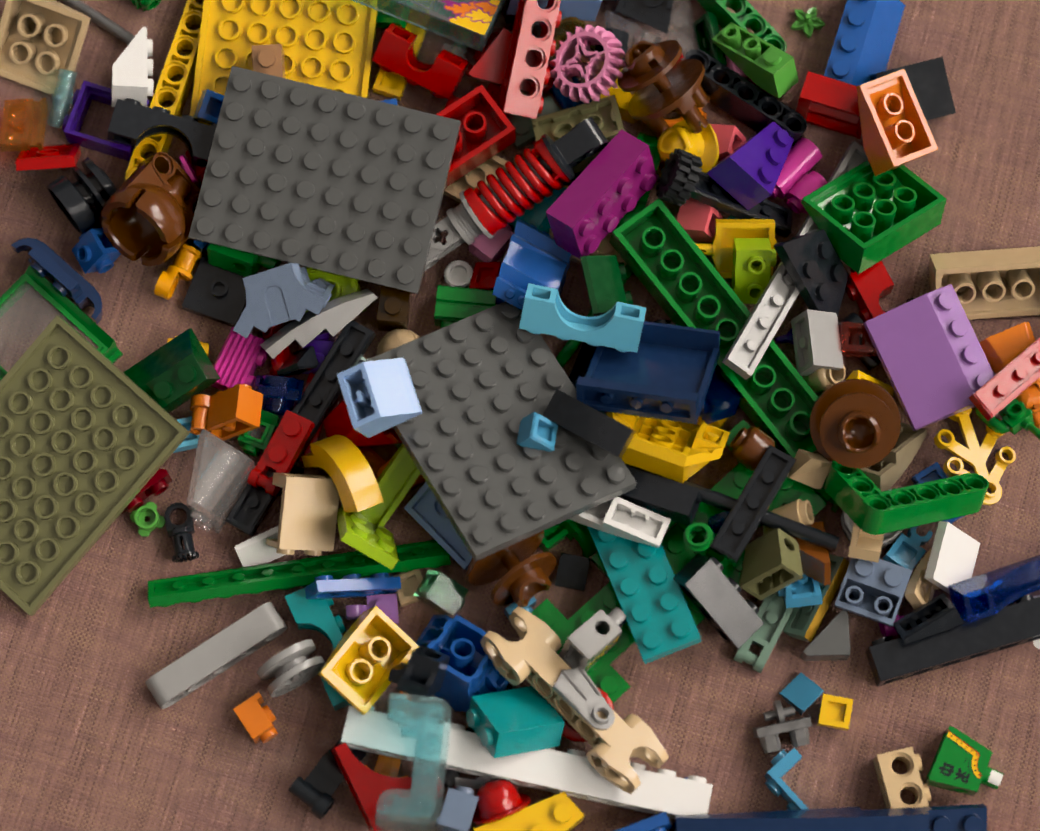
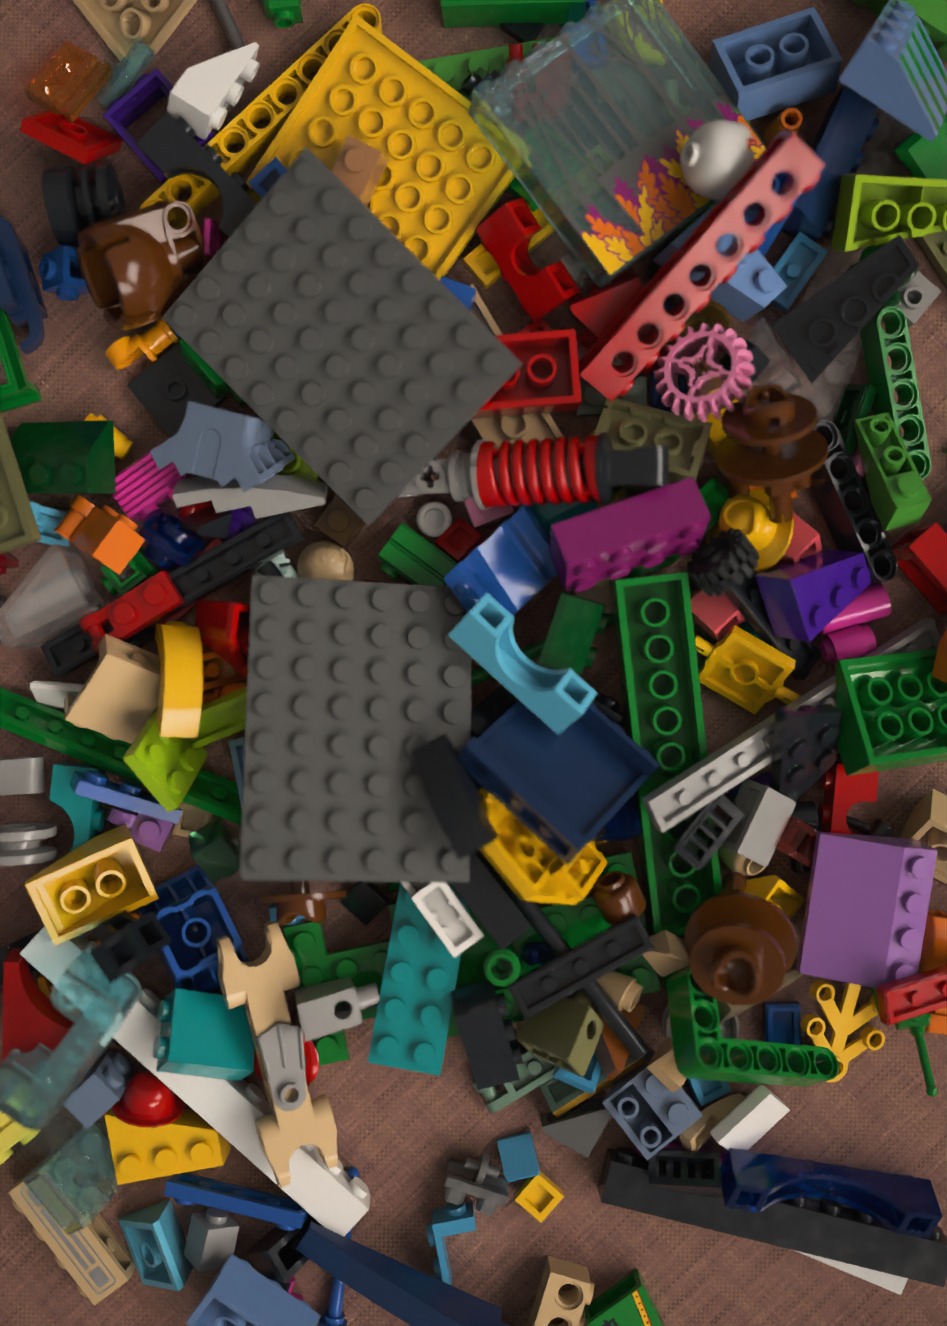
camera: 30 degrees right, 15 degrees up
(379, 395) = (242, 633): light blue slope -> none
(537, 432) = (393, 770): dark azure slope -> none
(751, 267) = (739, 700): lime brick -> none
(780, 386) = (707, 848): none -> black slope

